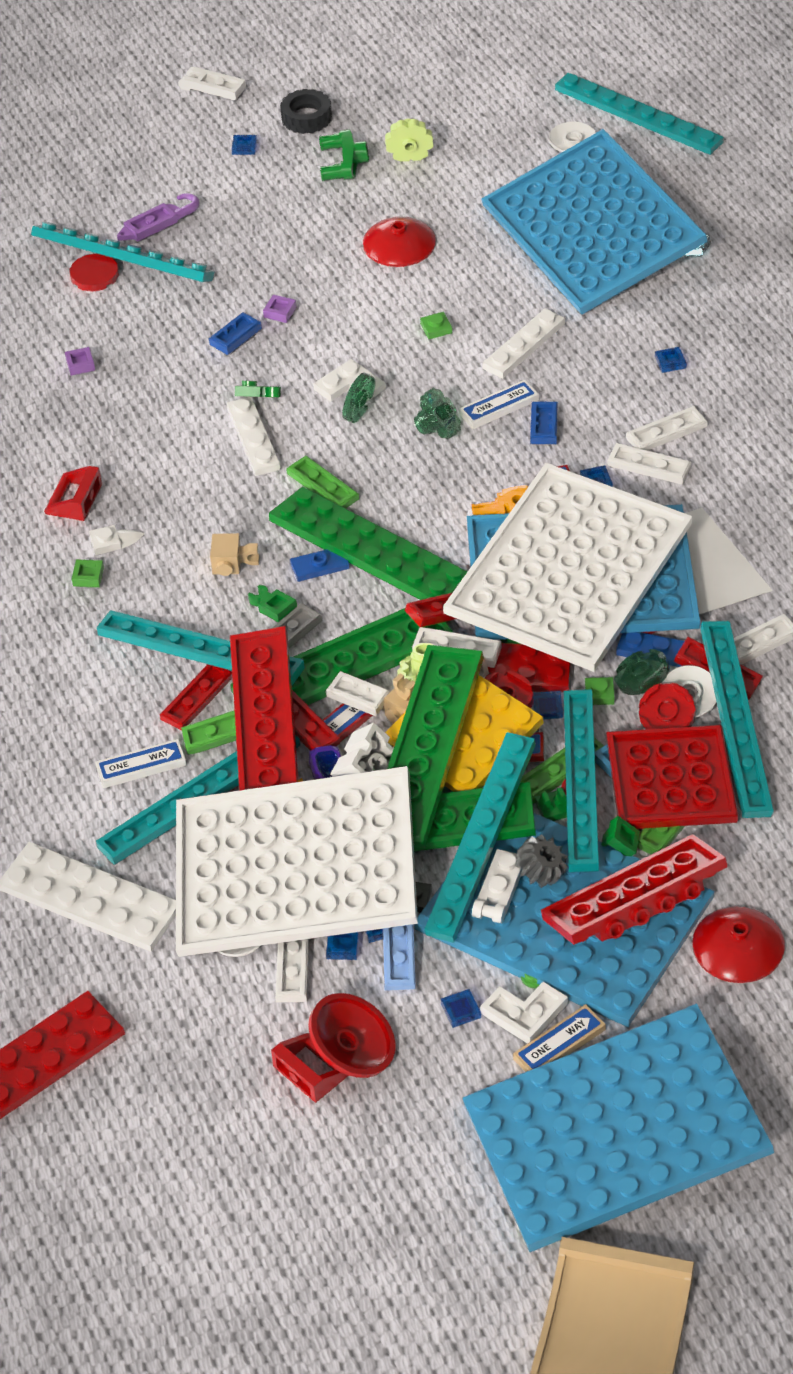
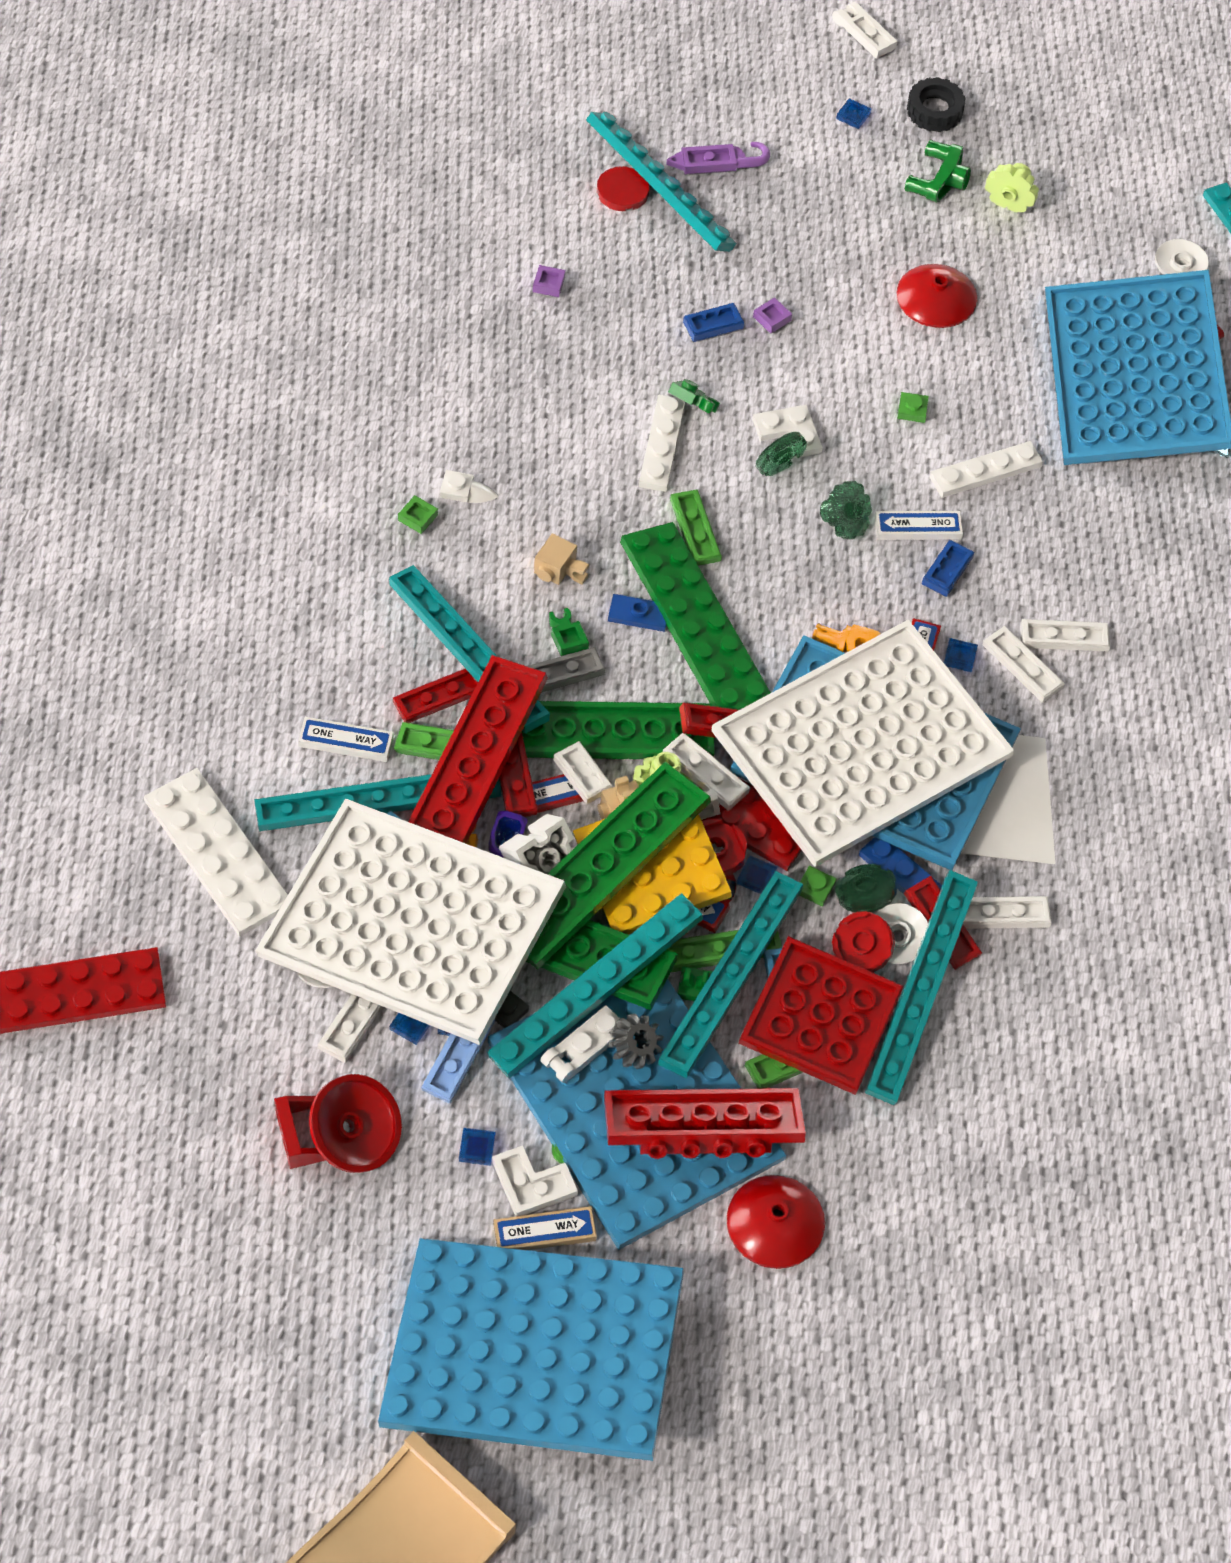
camera: 20 degrees right, 10 degrees up
(78, 507) = (463, 431): red tile -> none
(621, 836) = (733, 1053): green tile -> none
(670, 359) = (1119, 559): clear blue tile -> none

